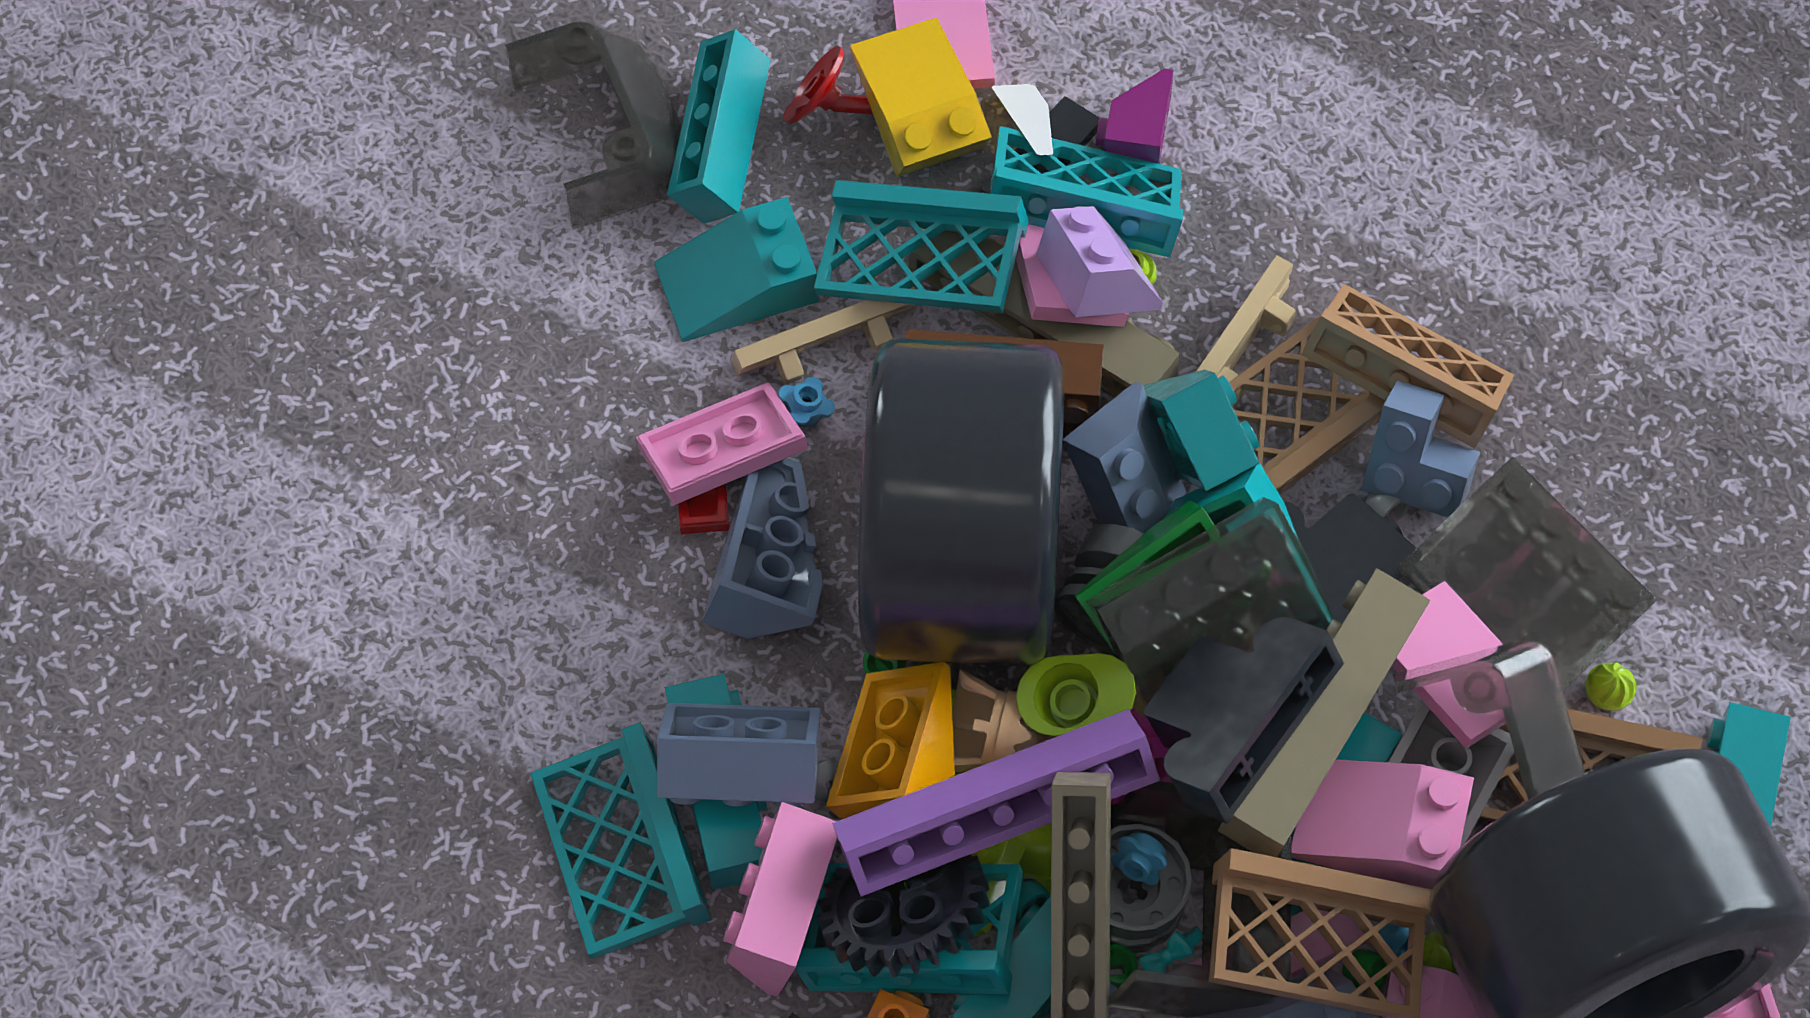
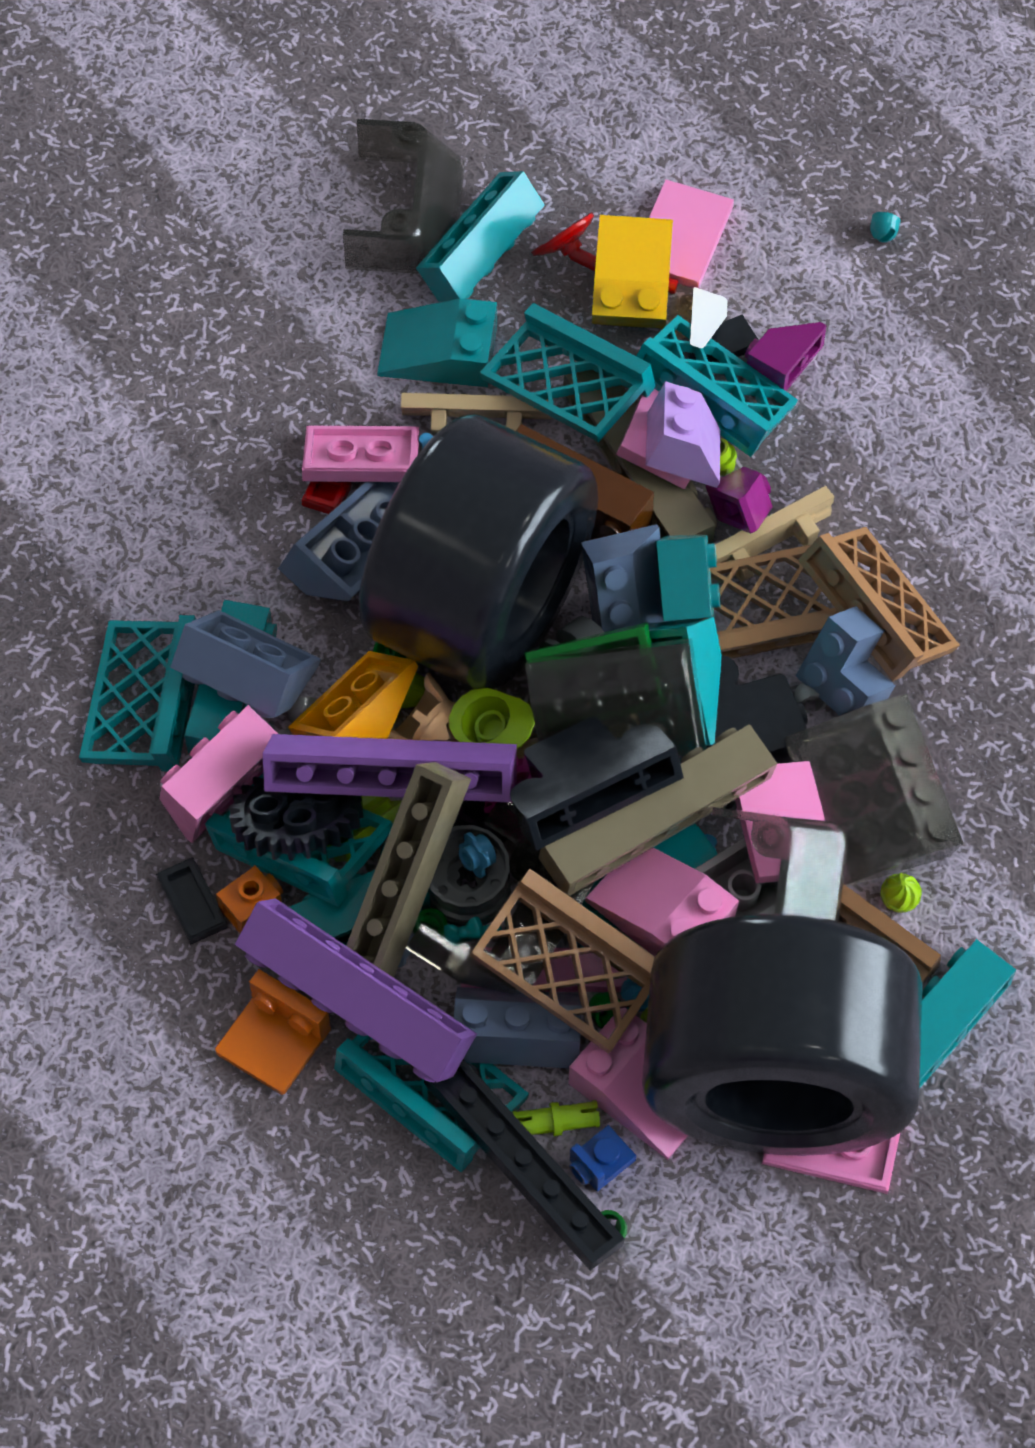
camera: 25 degrees right, 0 degrees up
(1191, 312) = (741, 499): none -> magenta slope

